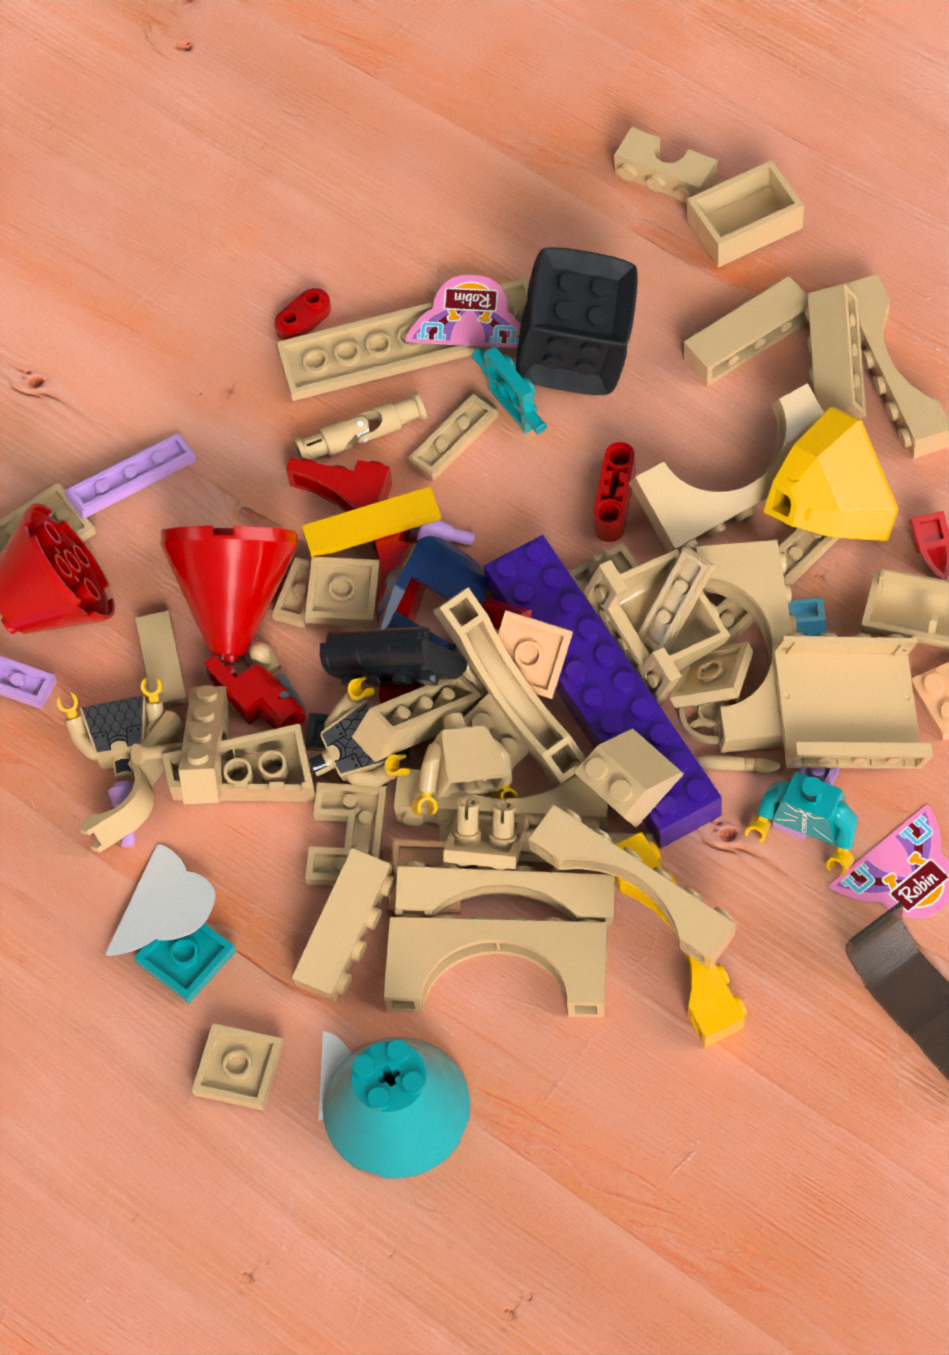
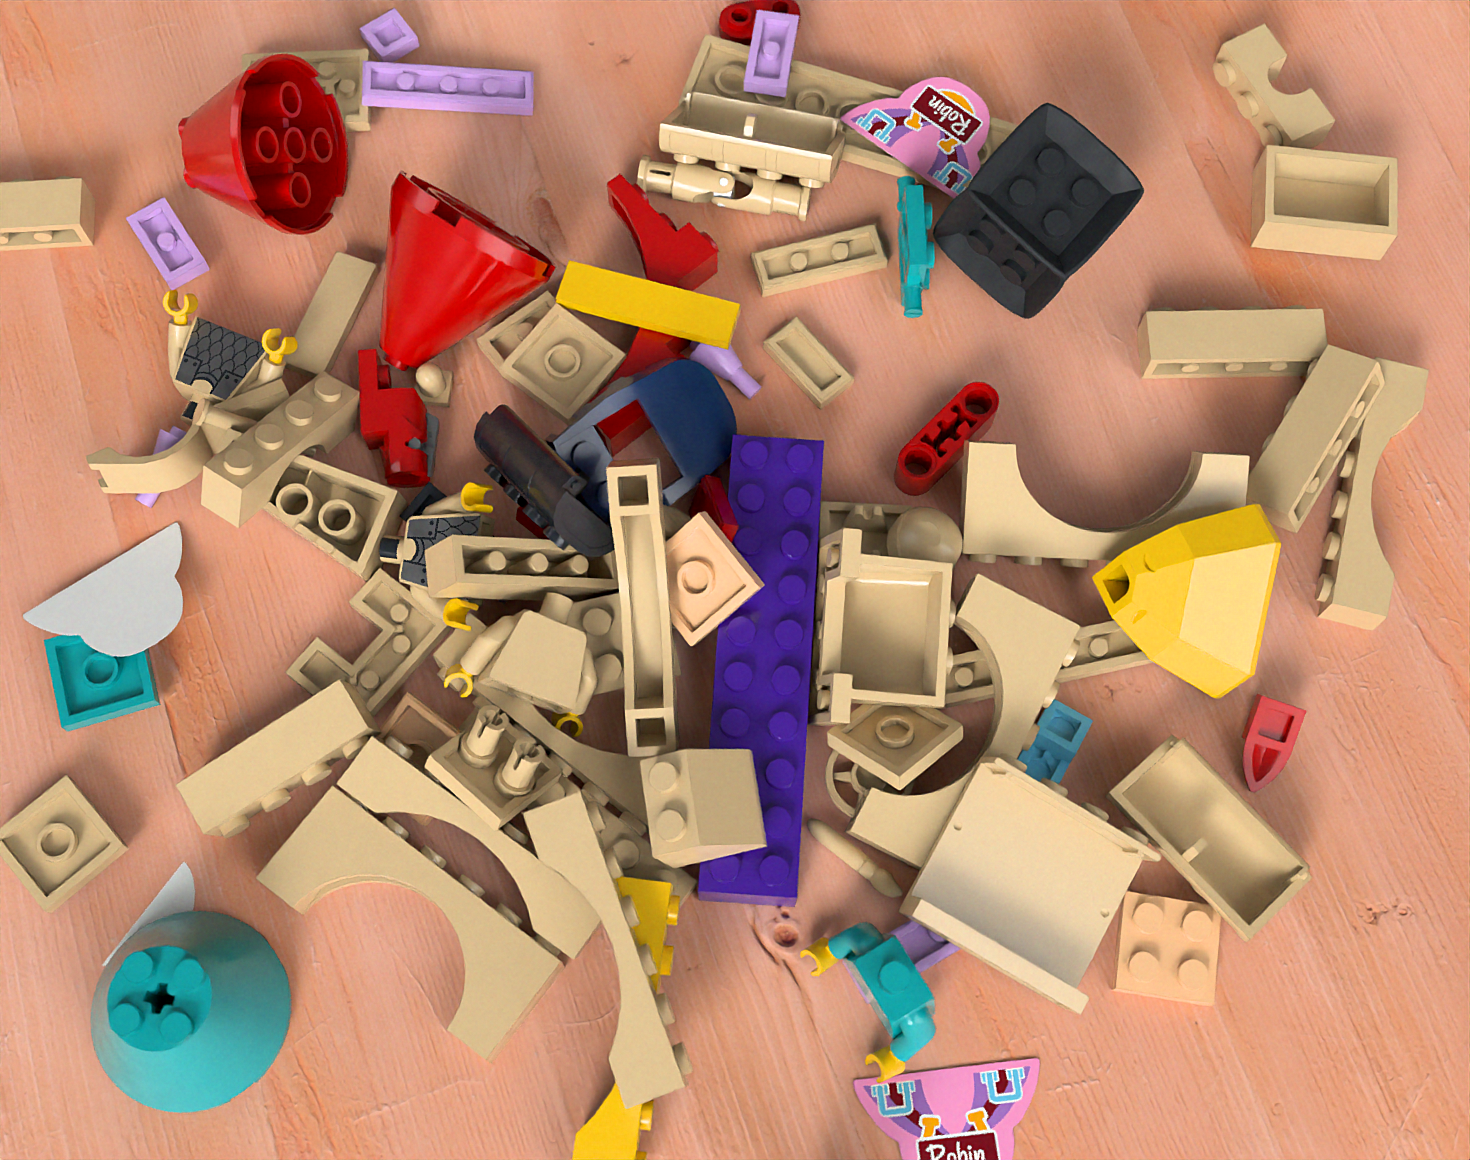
camera: 25 degrees right, 10 degrees up
(64, 467) = (389, 36): none -> lavender plate
(331, 327) = (771, 53): none -> lavender plate
(361, 383) = (754, 137): none -> tan container
(493, 501) = (808, 363): none -> tan tile
(644, 547) = (925, 535): none -> tan hat
(675, 600) = (910, 623): tan tile -> none

